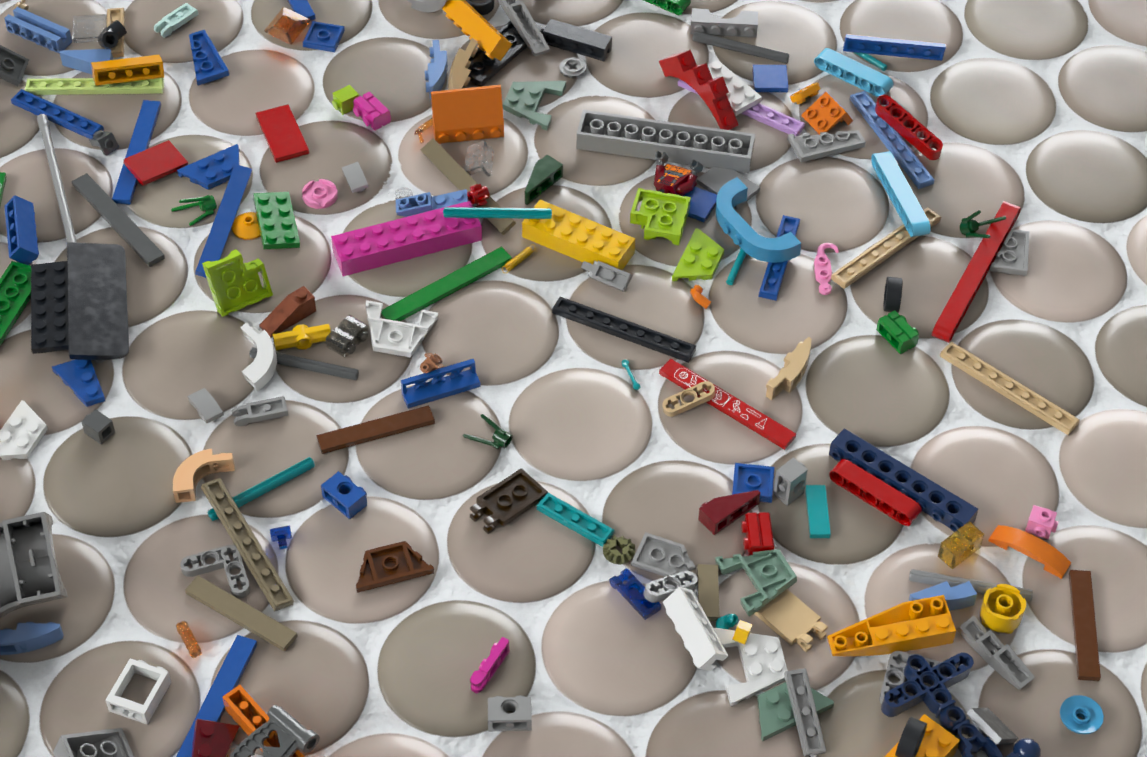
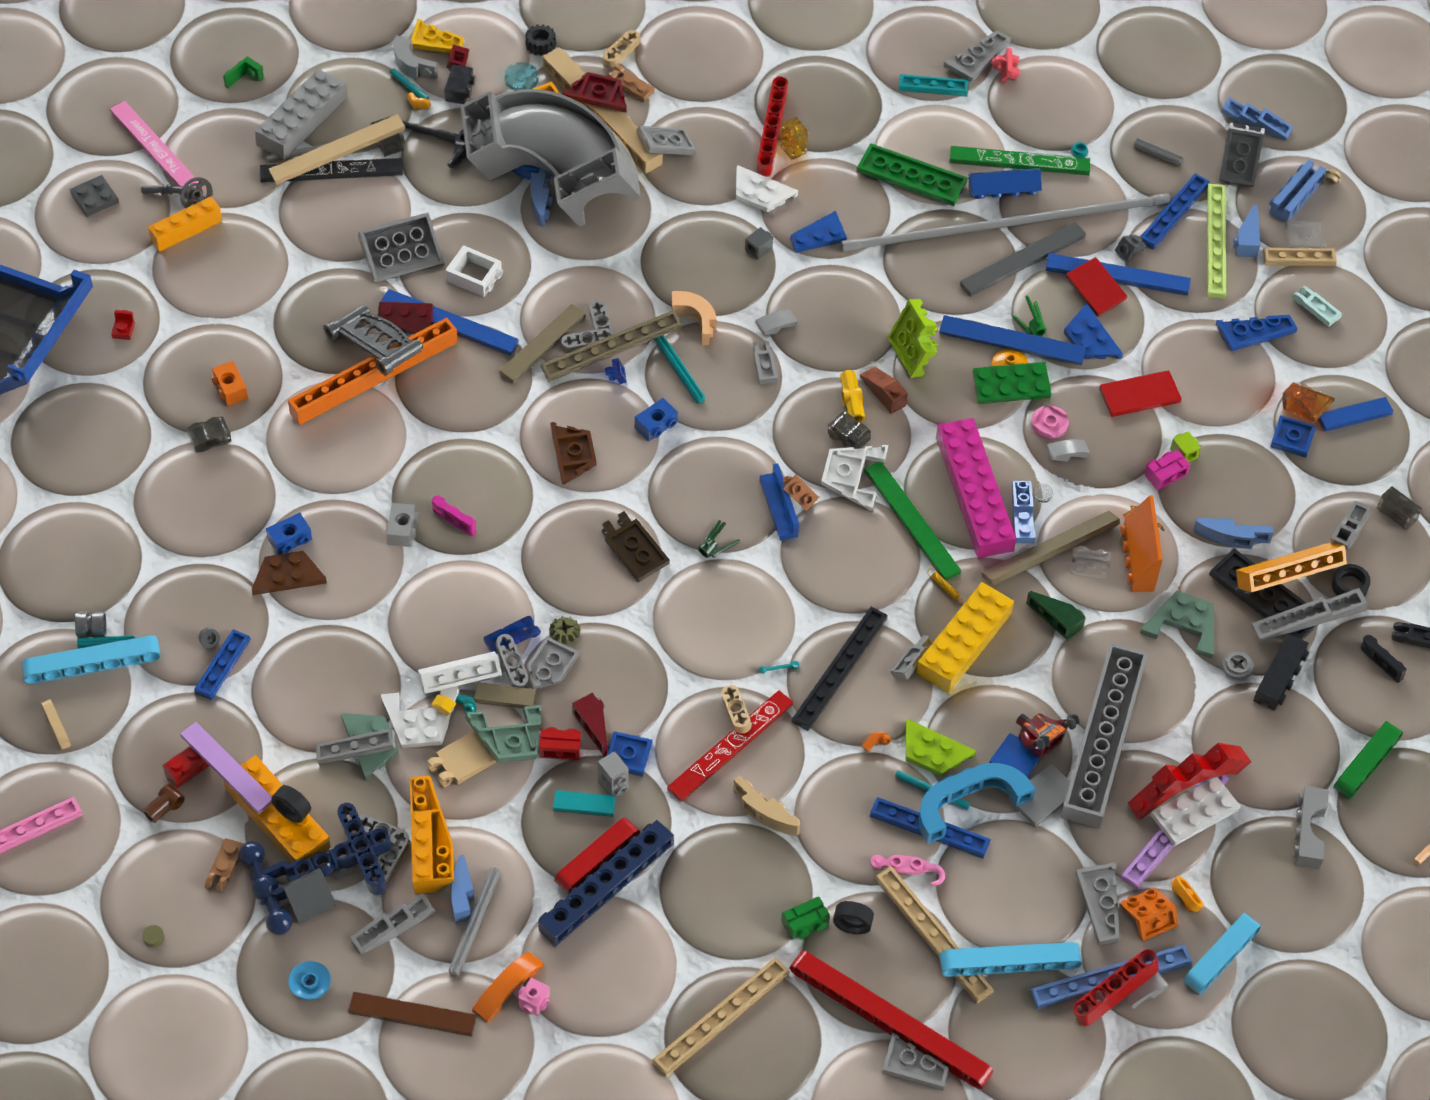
camera: 95 degrees right, 5 degrees up
(81, 303) = (906, 228): black slope -> none
(110, 35) = (1278, 244): black cylinder -> none
(127, 70) = (1228, 260): light orange brick -> none
(188, 639) = (521, 307): clear orange axle -> none
(265, 363) = (827, 362): white arch -> none
(313, 365) = (820, 399): dark grey axle -> none
(375, 429) = (733, 451): reddish brown tile -> none
(459, 69) = (1215, 545): tan slope -> none
(478, 195) = (1024, 547): red gear -> none
(516, 213) = (988, 556): teal axle -> none
(575, 519) = (605, 599): teal tile -> none
(660, 214) = (988, 715): lime piece -> none
(741, 47) = (1272, 842): dark grey axle -> none
(770, 78) = (1218, 865): tile -> none
(872, 60) = (1256, 976): teal bar -> none
(894, 47) = (1261, 1003): blue tile -> none
(960, 545) = (519, 917): clear yellow brick -> none
(969, 226) = (955, 1025): dark green plant -> none
(1002, 608) = (436, 935): yellow brick -> none

